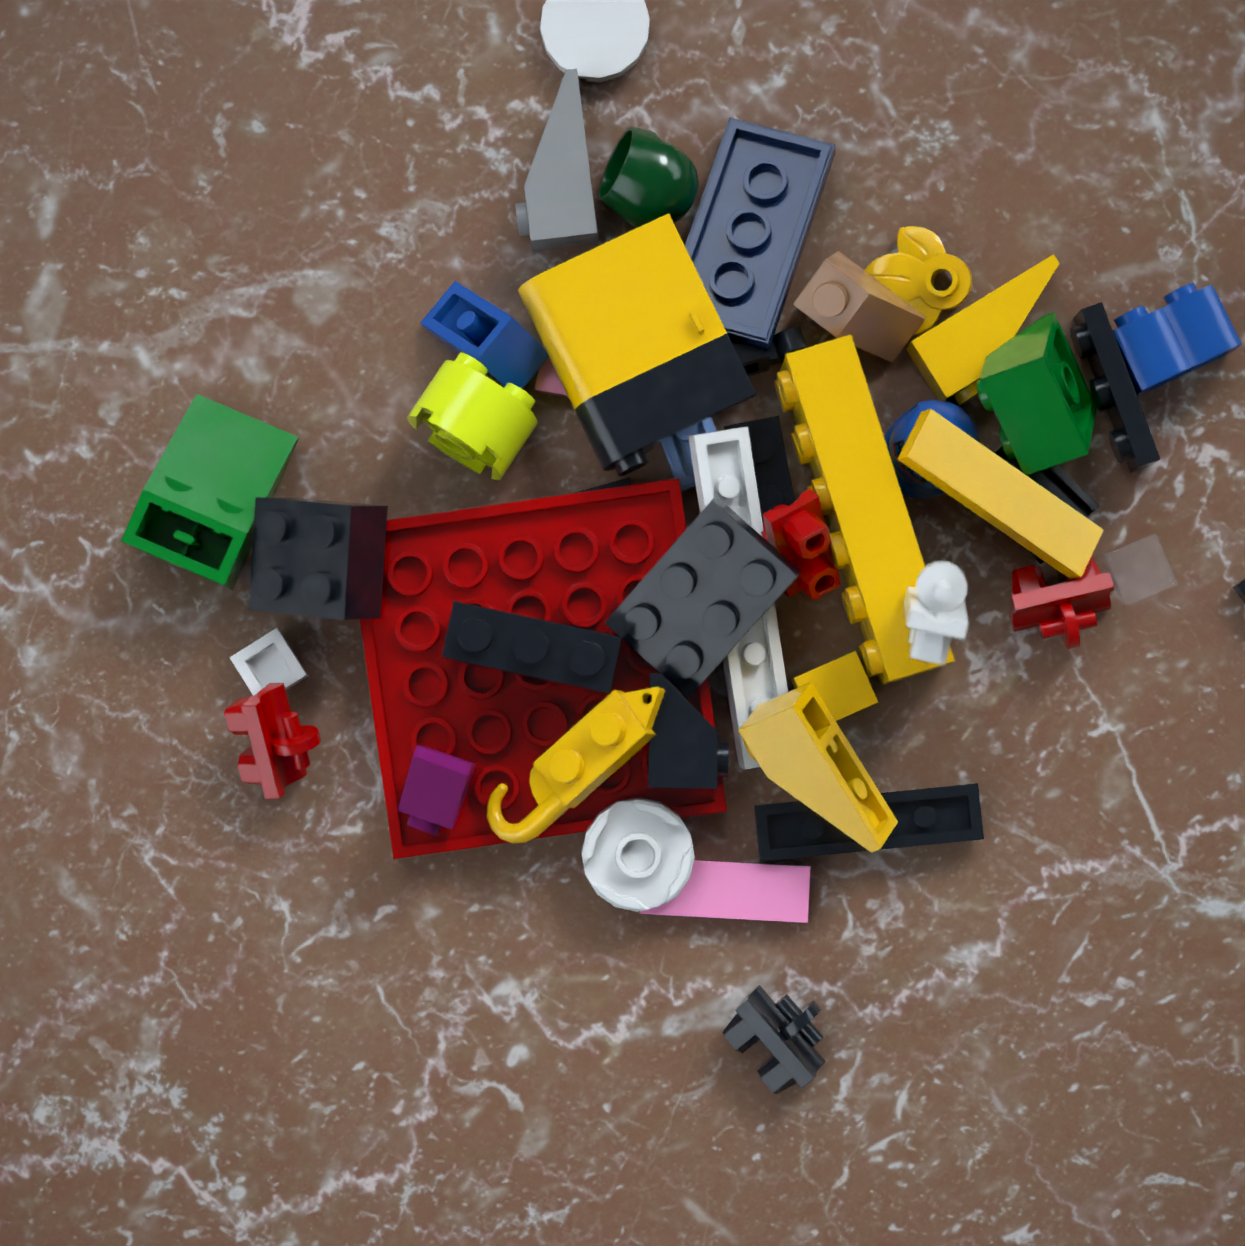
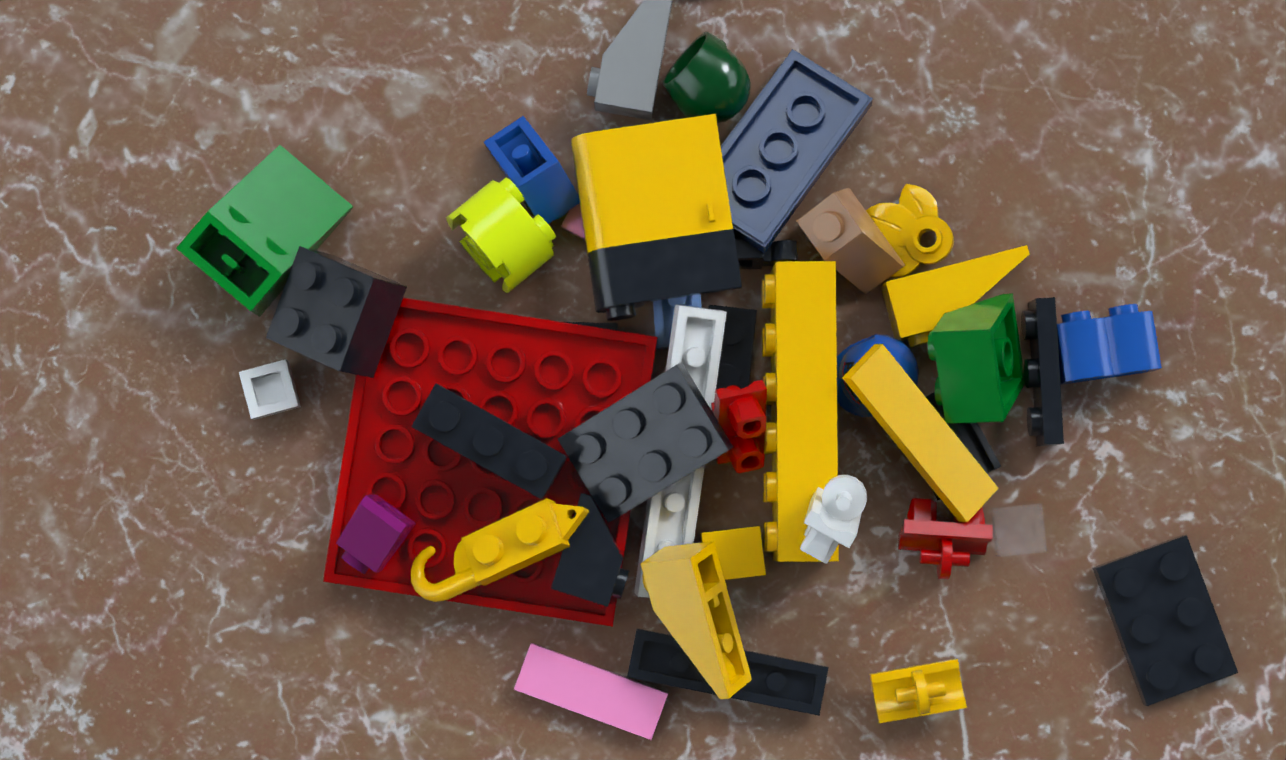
camera: 15 degrees right, 0 degrees up
(276, 740) = (255, 451): red hips -> none
(637, 854) = (526, 639): white tile -> none
(1083, 778) = (917, 690): none -> yellow hips

